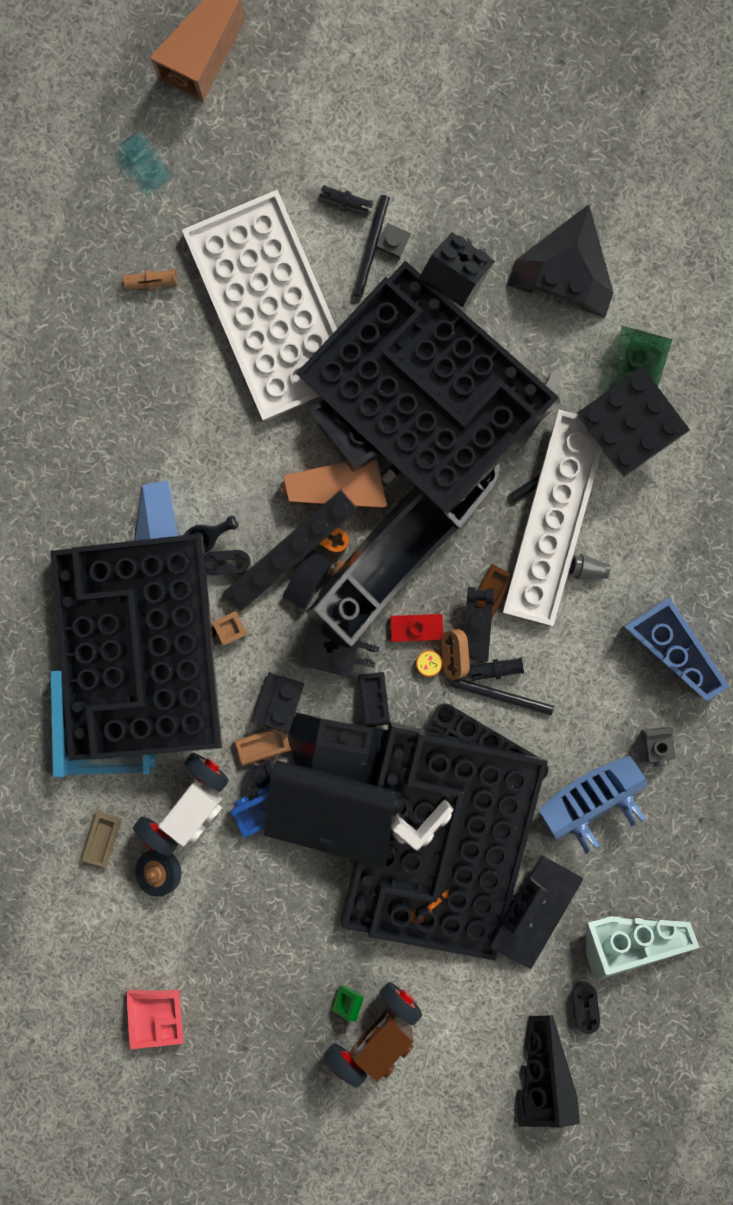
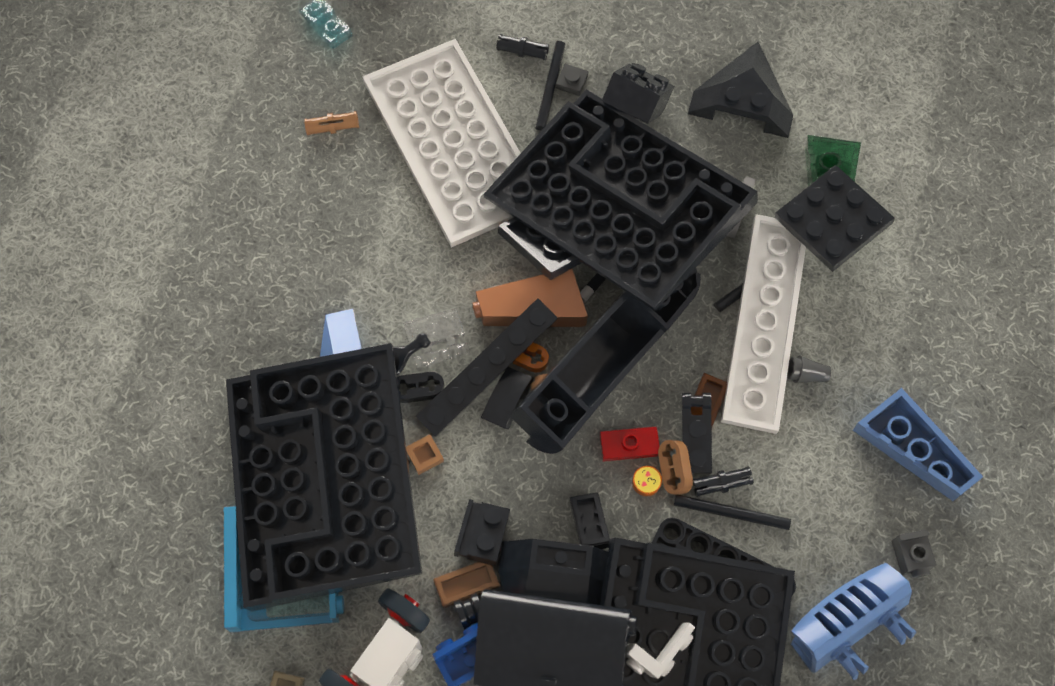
camera: 10 degrees left, 20 degrees down
(339, 661) = (547, 480): black hinge -> none

